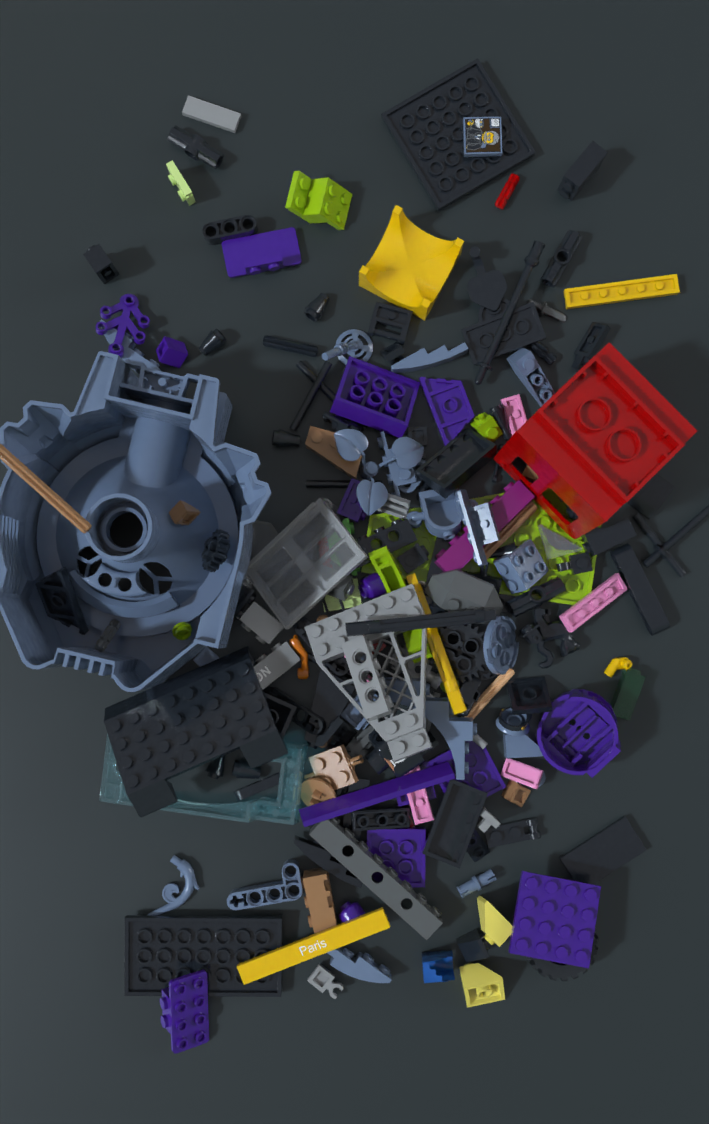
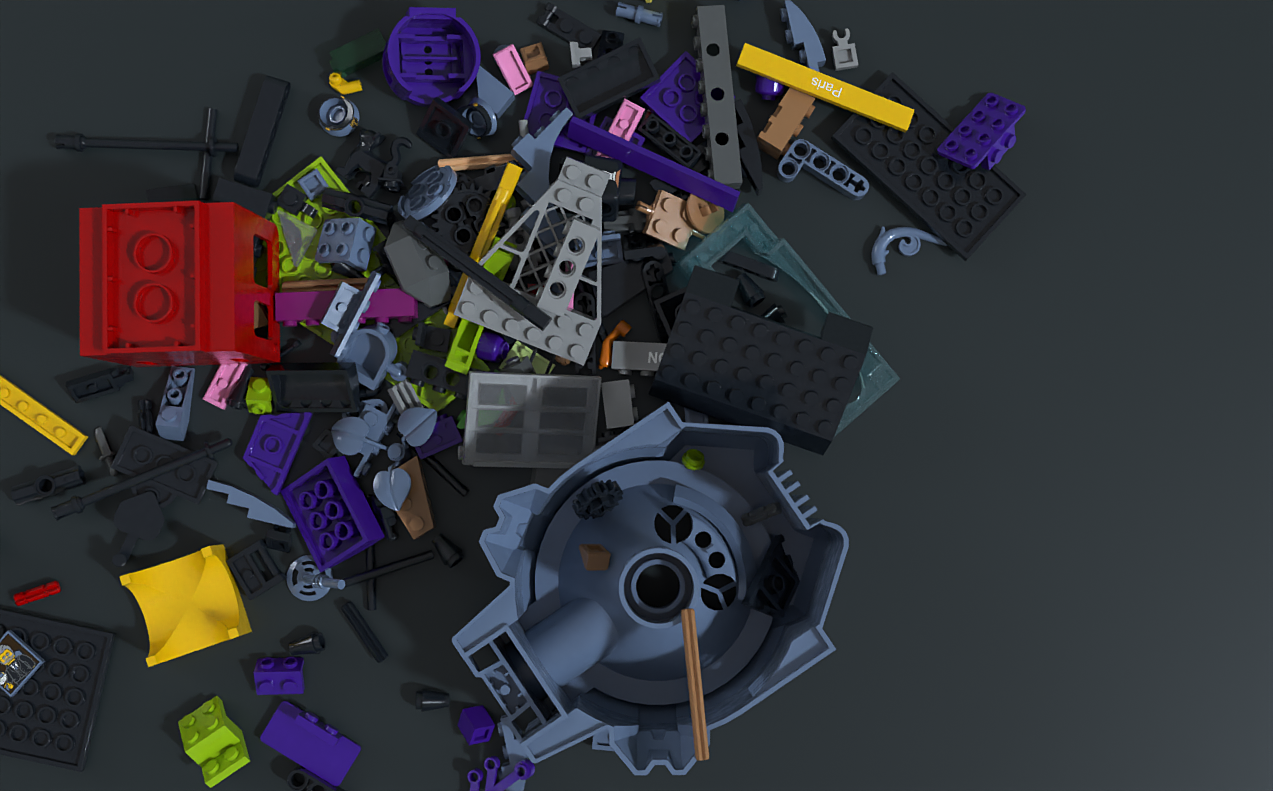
camera: 145 degrees left, 0 degrees up
(317, 274) = (279, 676): none -> dark purple bracket
(576, 585) = (313, 184): none -> sand blue tile
(593, 602) = (313, 156): bright pink tile -> none
(602, 642) = (338, 116): none -> sand blue piece

